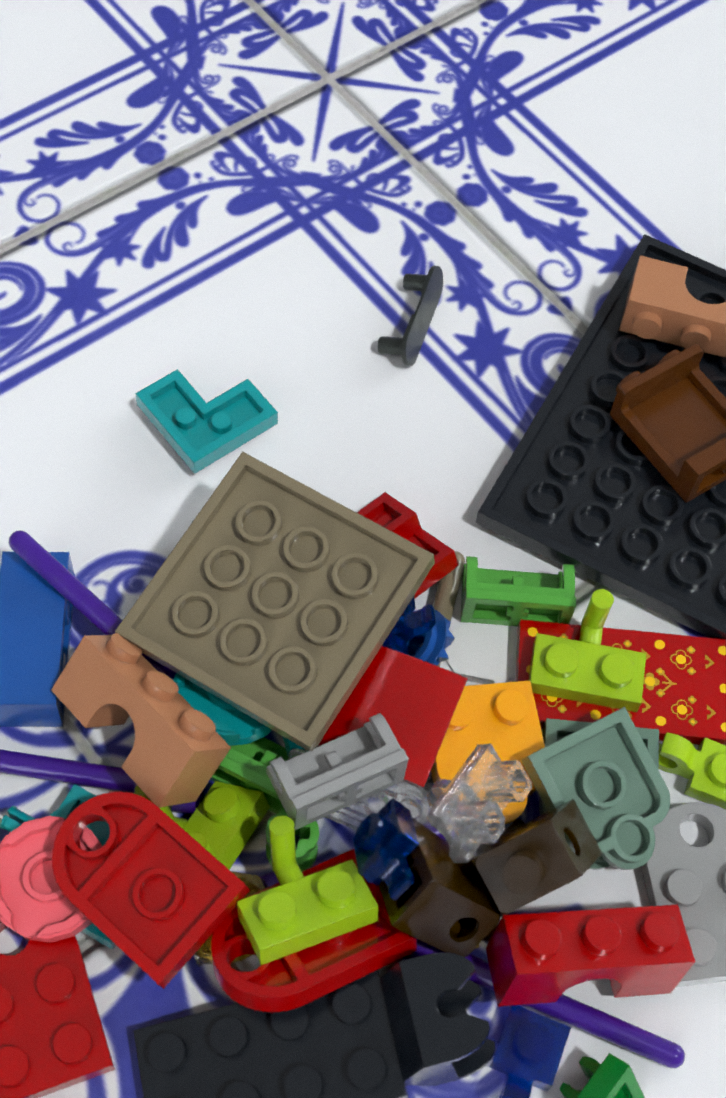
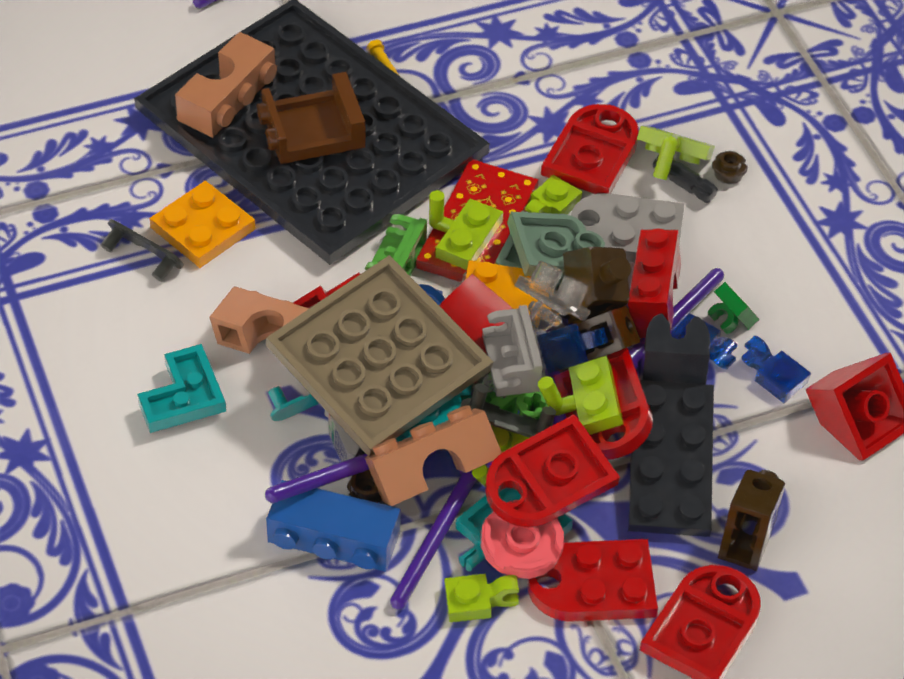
camera: 70 degrees left, 10 degrees down
(243, 804) = (507, 420): none -> pearl dark grey piece
(332, 450) = (250, 317): none -> nougat arch
(485, 366) = (202, 224): none -> light orange plate

